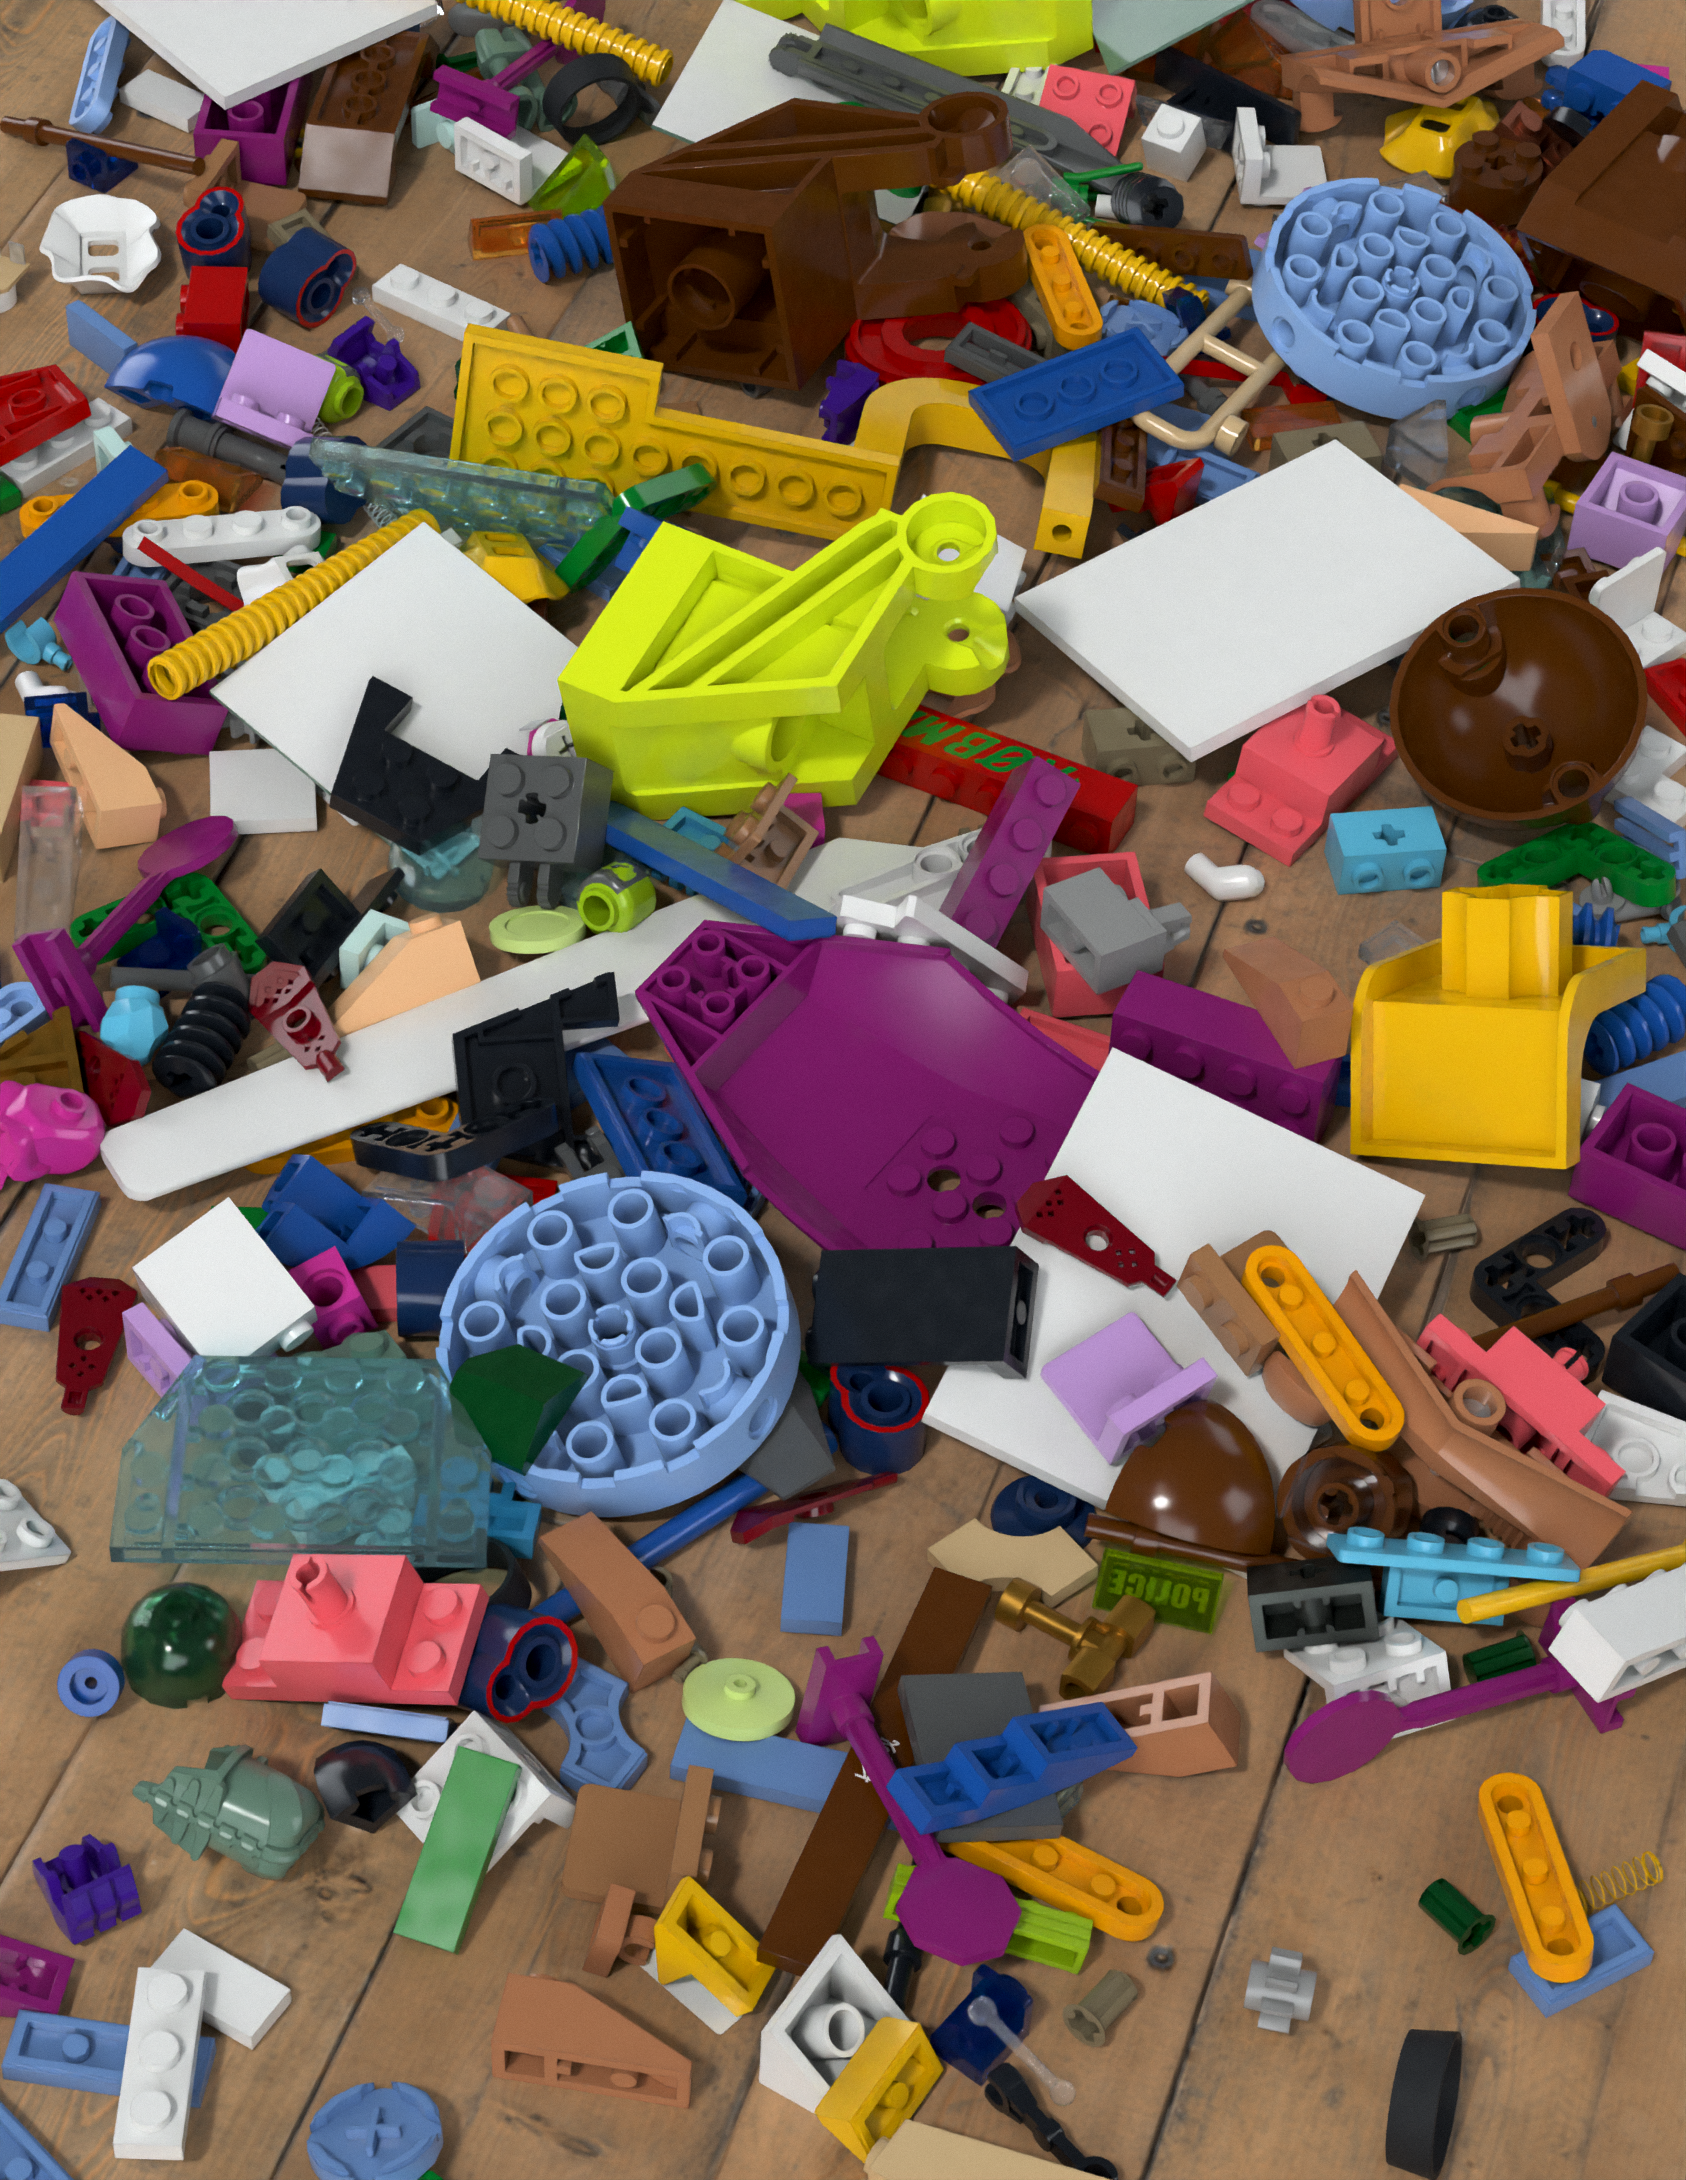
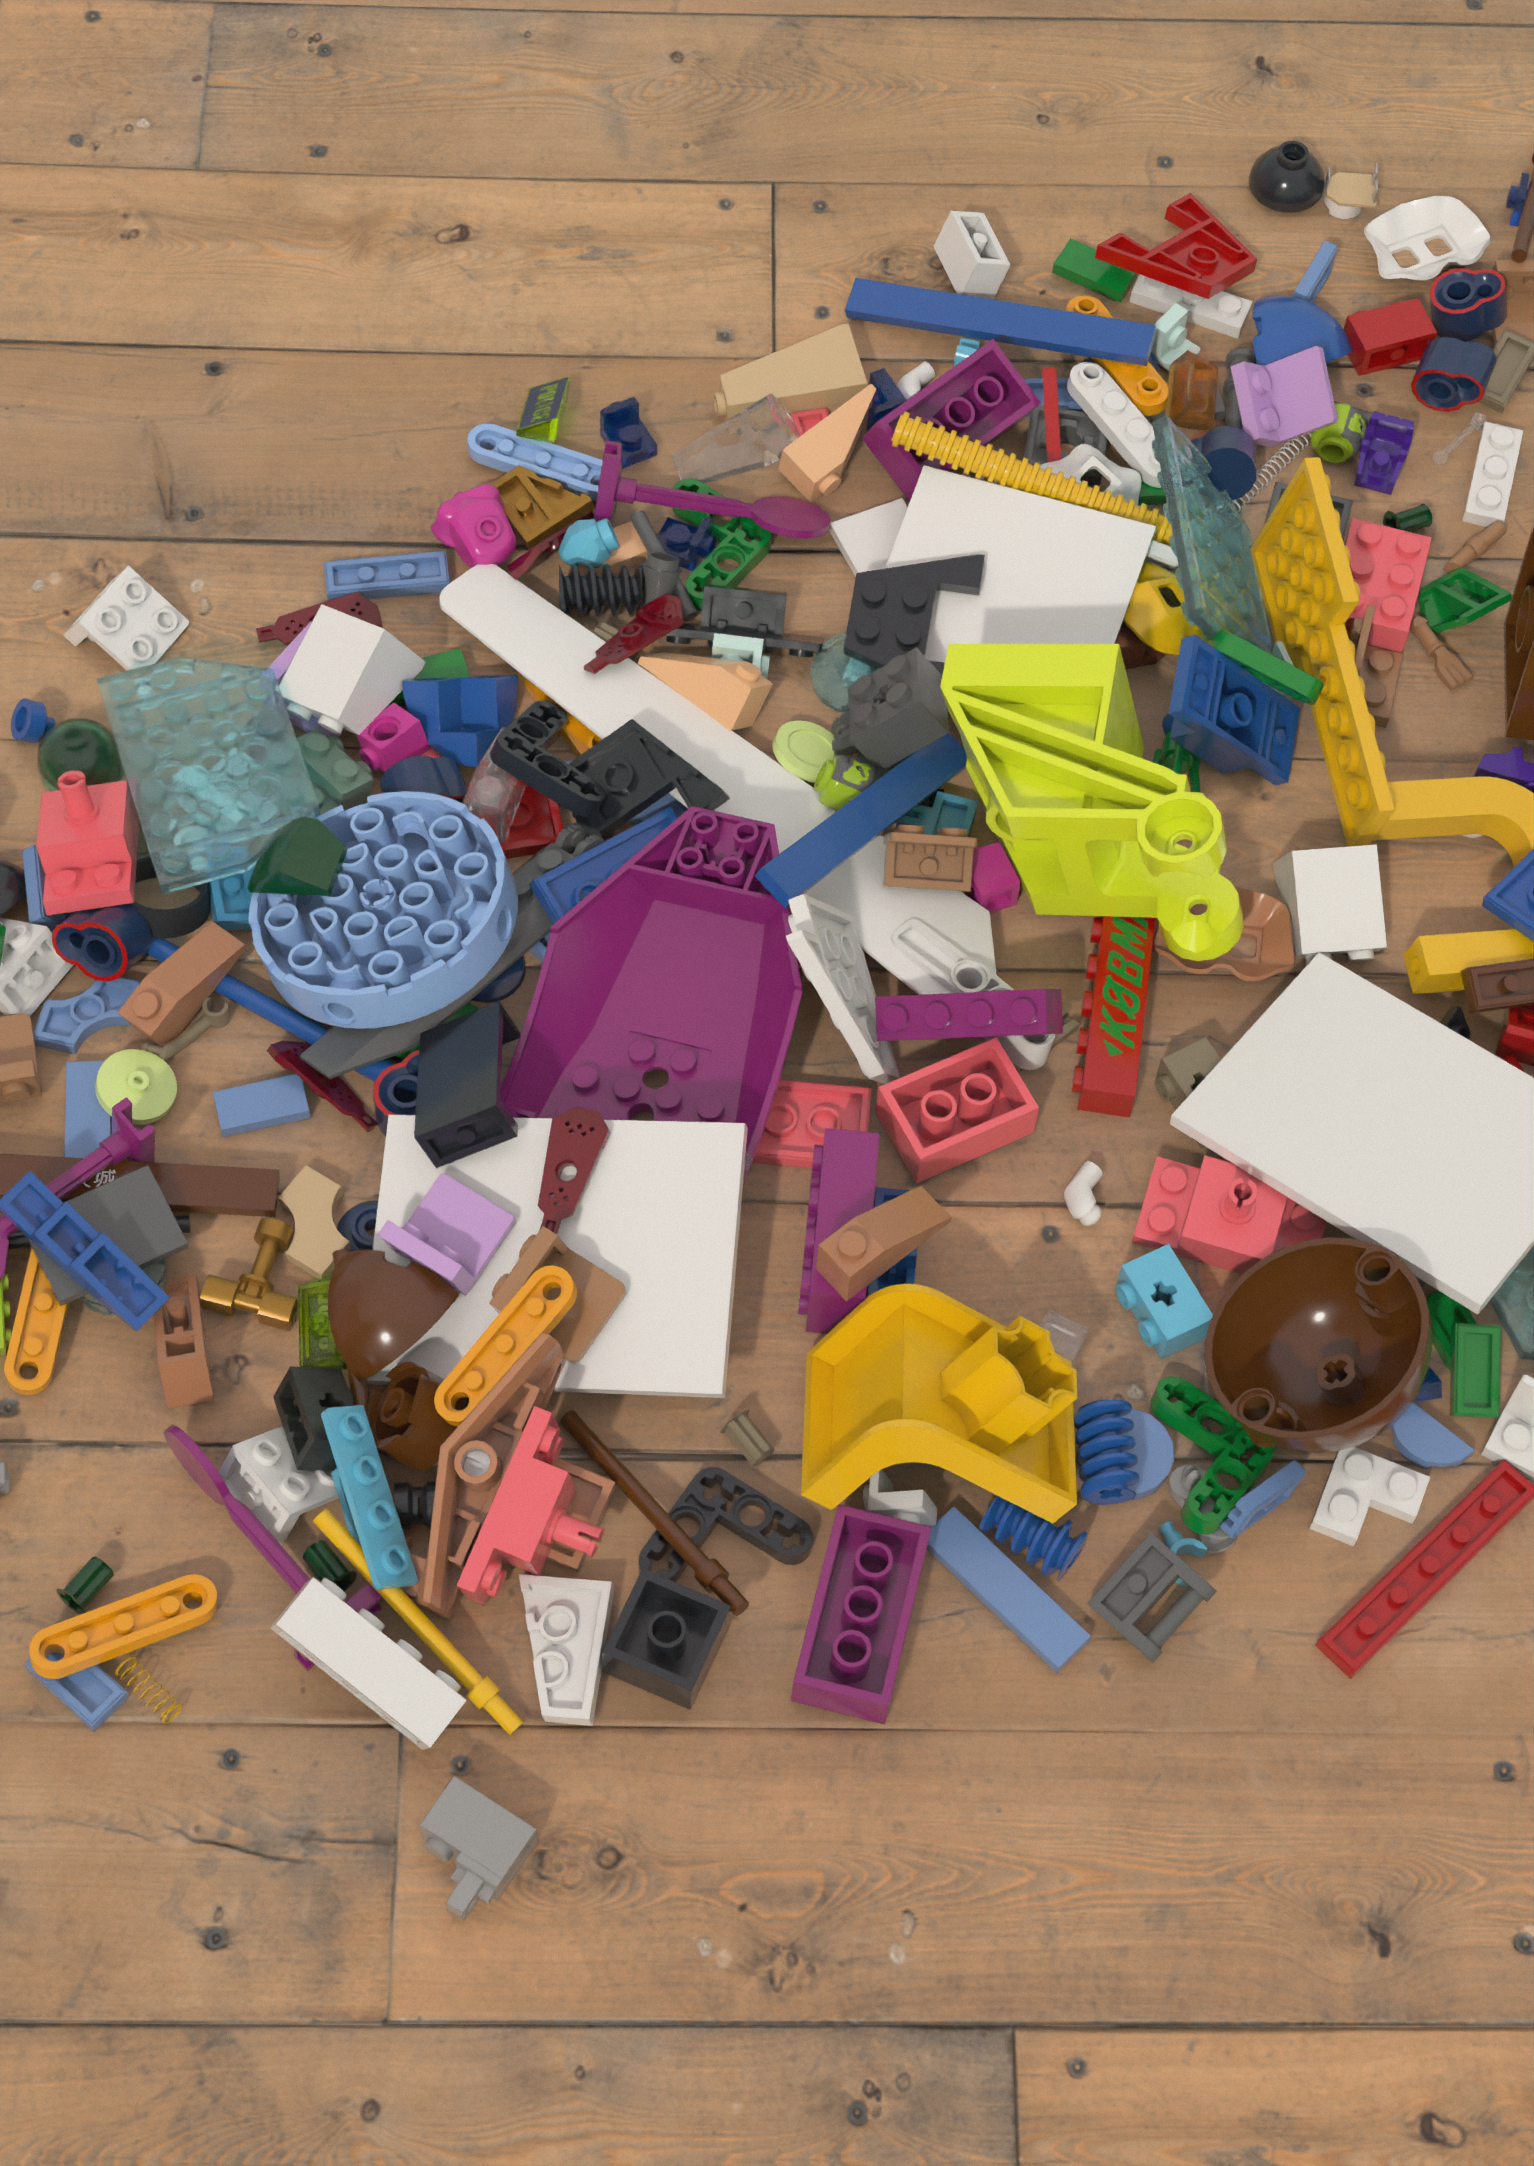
camera: 70 degrees right, 15 degrees up
(1106, 932) = (913, 1102): light grey hinge -> none

